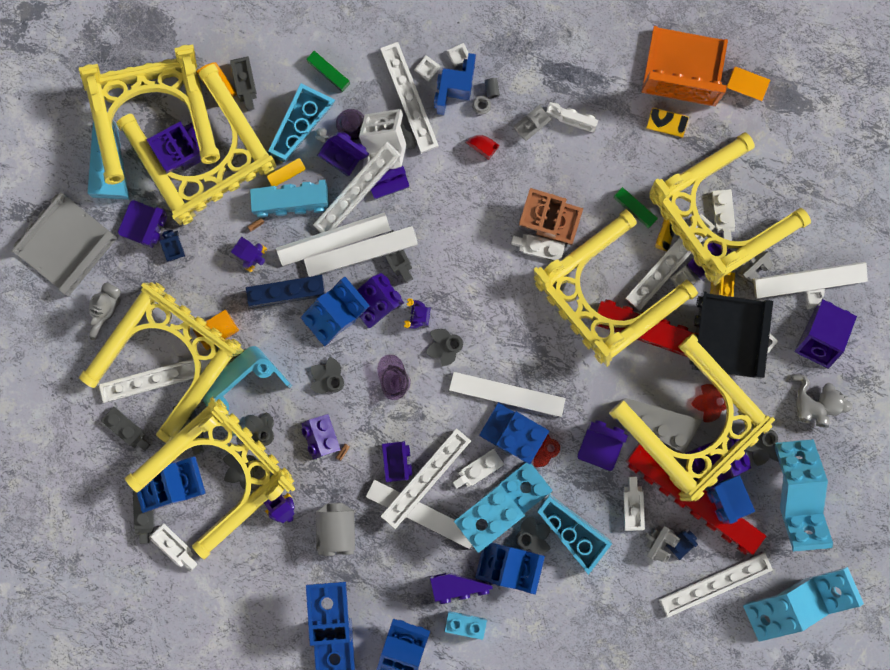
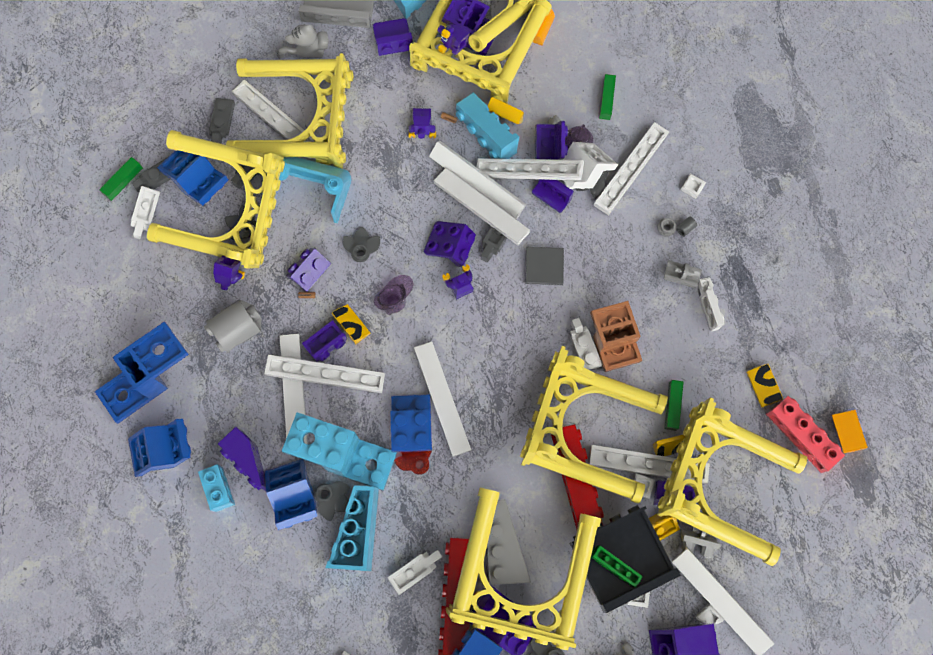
camera: 55 degrees right, 10 degrees down
(127, 550) = (121, 179): none -> green piece
(171, 245) = (389, 66): dark blue bracket -> none
(193, 175) = (453, 37): none -> dark purple piece
(221, 322) = (352, 139): light orange brick -> none
(244, 81) = (554, 42): dark grey hinge -> none
(260, 426) = (284, 219): dark grey plate -> none
(285, 291) = (410, 169): dark blue brick -> none
(301, 118) = (553, 97): medium azure wedge -> none
(334, 311) = (418, 214): blue bracket -> none
(393, 429) = (351, 324): none -> yellow slope
(427, 68) = (664, 168): white tile -> none
(441, 347) = (447, 319): dark grey plate -> none
(448, 232) = (544, 265): none -> dark grey tile
(454, 84) = (668, 193): blue bracket -> none
(479, 469) = (362, 415): white hinge -> none
(483, 145) = (635, 249): red brick -> none
(601, 445) = (450, 507): dark purple bracket -> none
(658, 541) = (395, 615): light grey hips -> none
(685, 67) = (820, 369): orange bracket -> none
(685, 544) = (408, 639): dark blue bracket -> none
(708, 403) = (549, 580): clear red plate -> none
(723, 213) = (725, 483): white hinge -> none
(727, 119) = (805, 434): none -> coral brick
(734, 345) = (616, 566): none -> green piece

